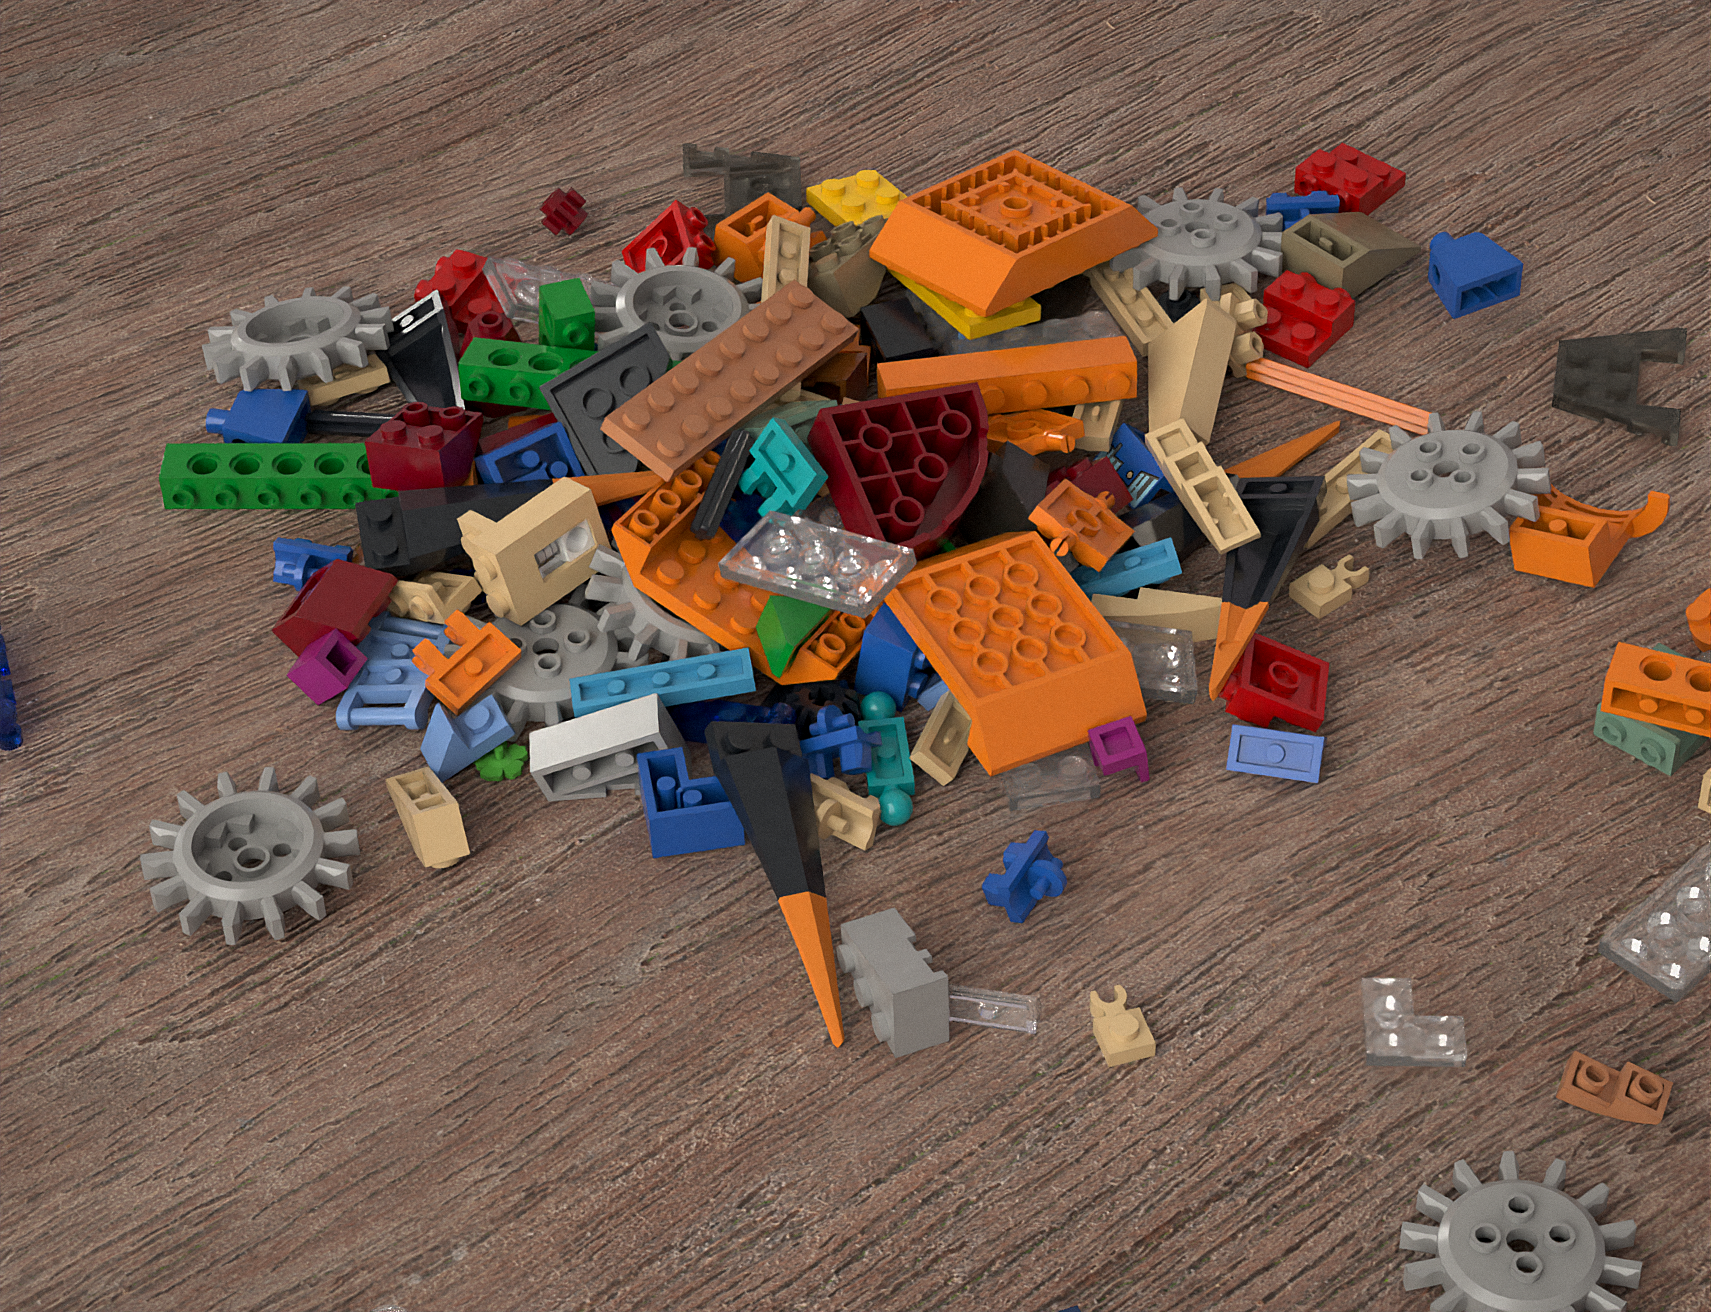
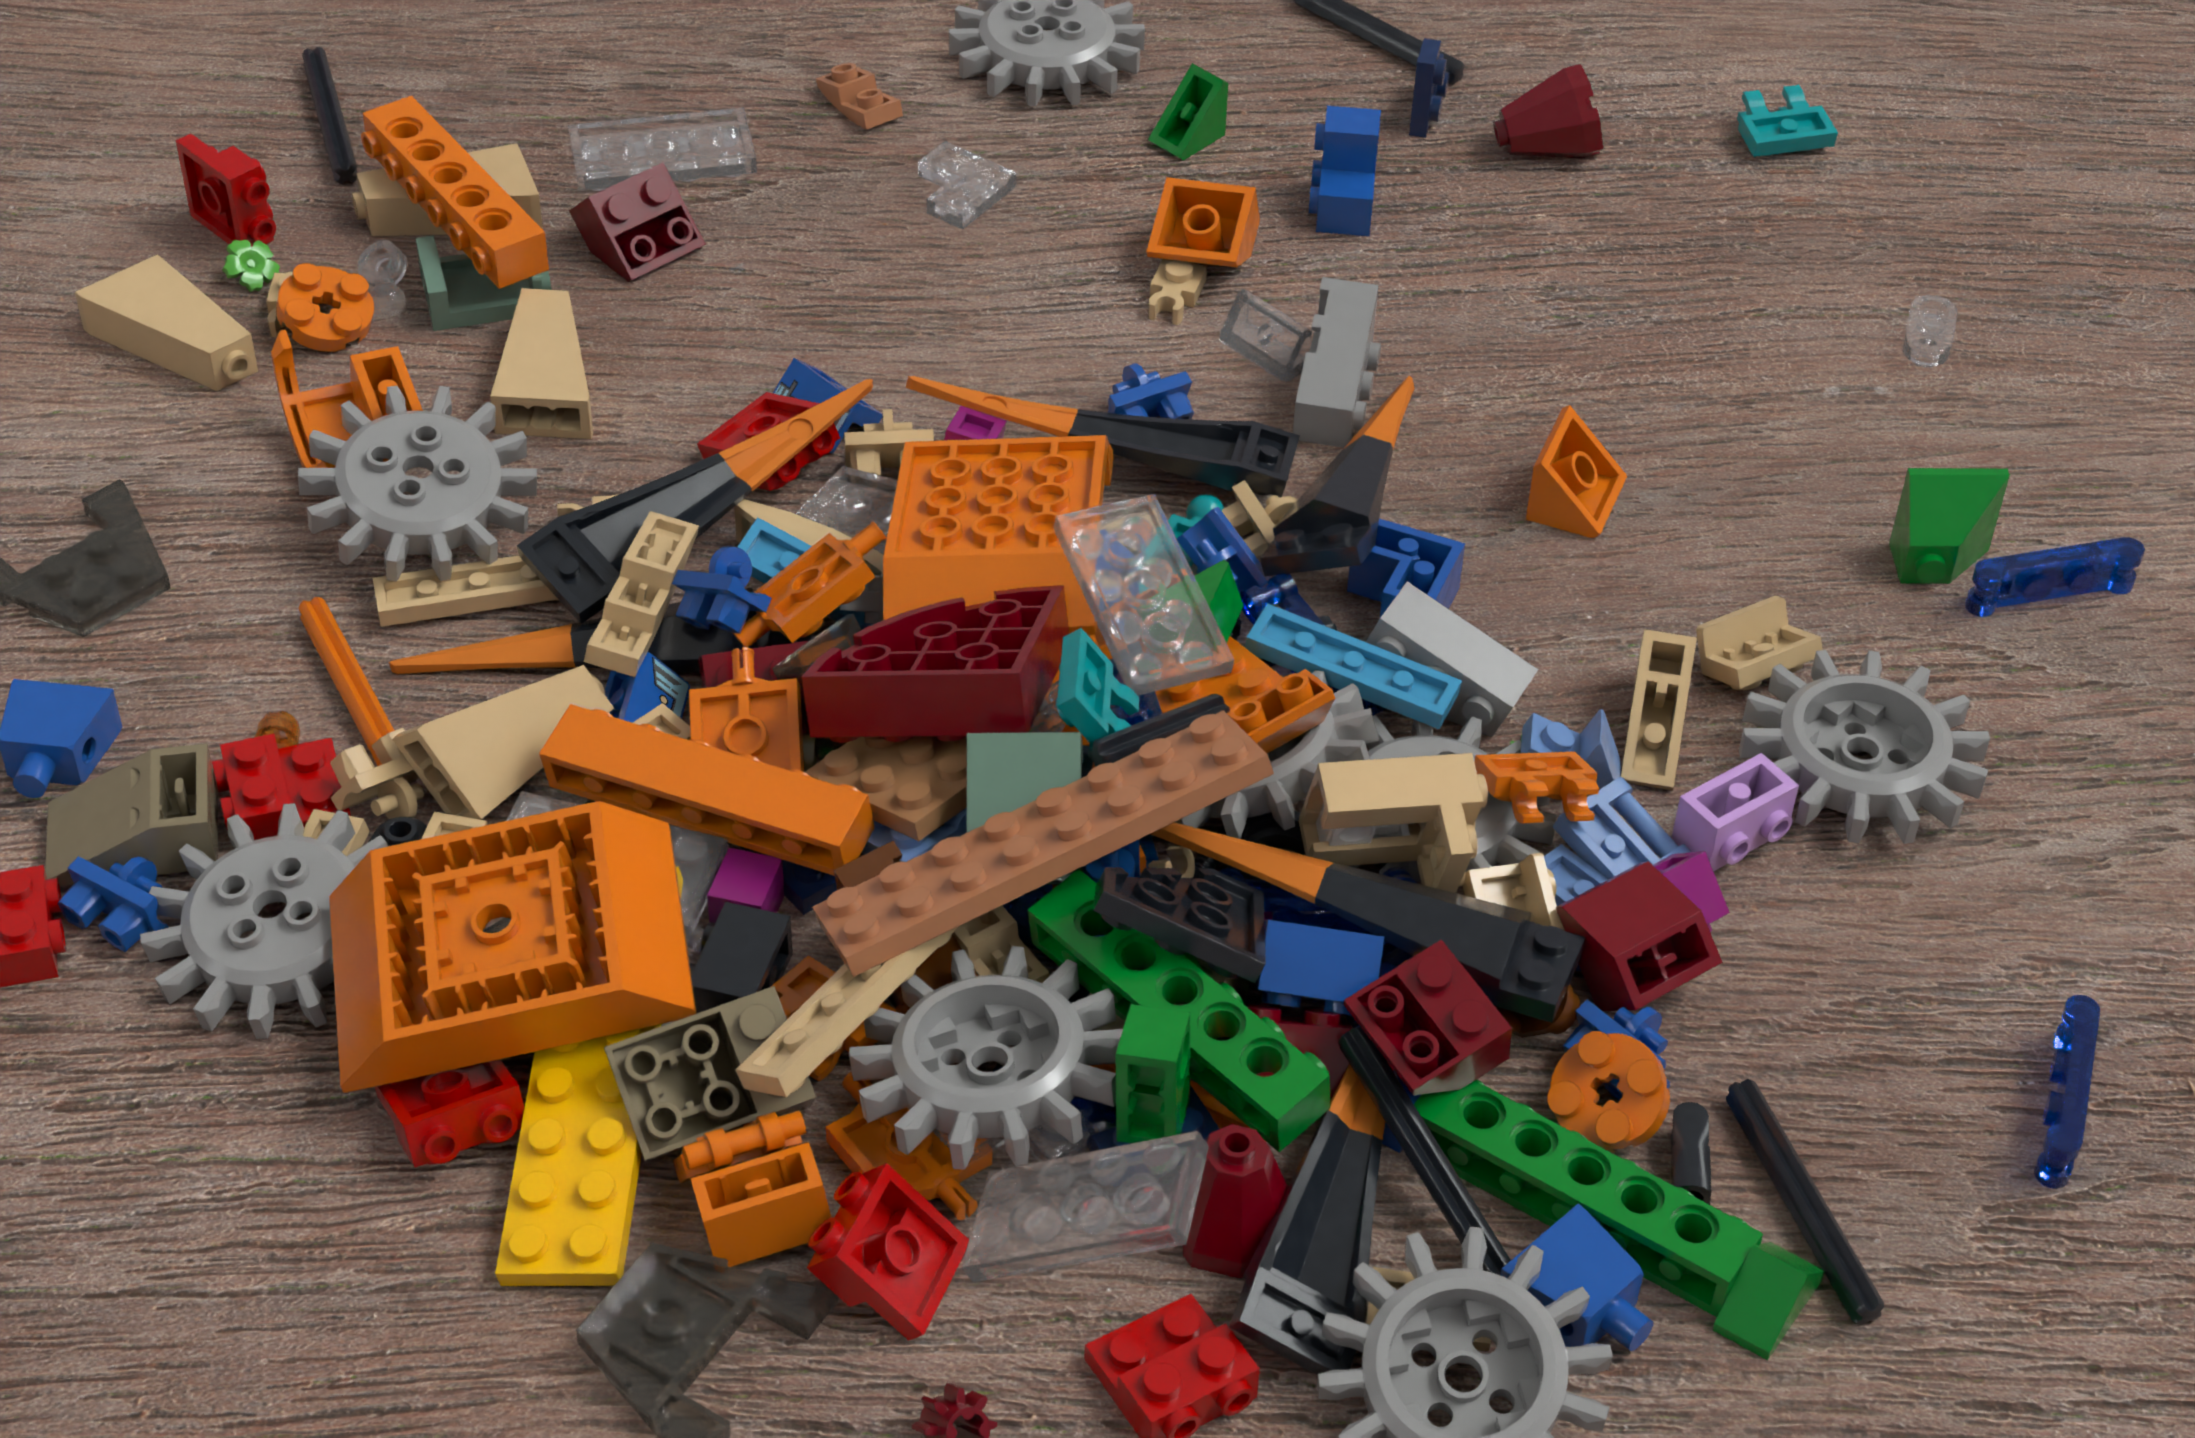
camera: 150 degrees left, 0 degrees up
(139, 491) = (1766, 1298): none -> green slope
(151, 548) = (1805, 1202): none -> black axle
(158, 1108) = (2054, 574): none -> clear blue plate
(233, 533) = (1691, 1151): none -> black bar
(273, 1087) = (1945, 521): none -> green slope
(300, 525) = (1599, 1060): none -> orange plate
(319, 740) = (1736, 811): none -> lavender brick
(374, 905) = (1751, 642): none -> tan bracket
(620, 989) = (1574, 479): none -> orange slope
(936, 838) = (1196, 449): none -> black plate
(1065, 1210) = (1346, 175): none -> blue brick
(1136, 1069) = (1205, 223): none -> orange slope
(1138, 493) = (720, 594): none -> blue hips
(1181, 728) = (881, 444): none -> tan hips
(1279, 1229) = (1193, 115): none -> green slope
(1344, 343) = (278, 722): none -> clear orange hinge
(1513, 659) = (542, 371): none -> tan slope
(1613, 821) = (638, 224): none -> dark red slope

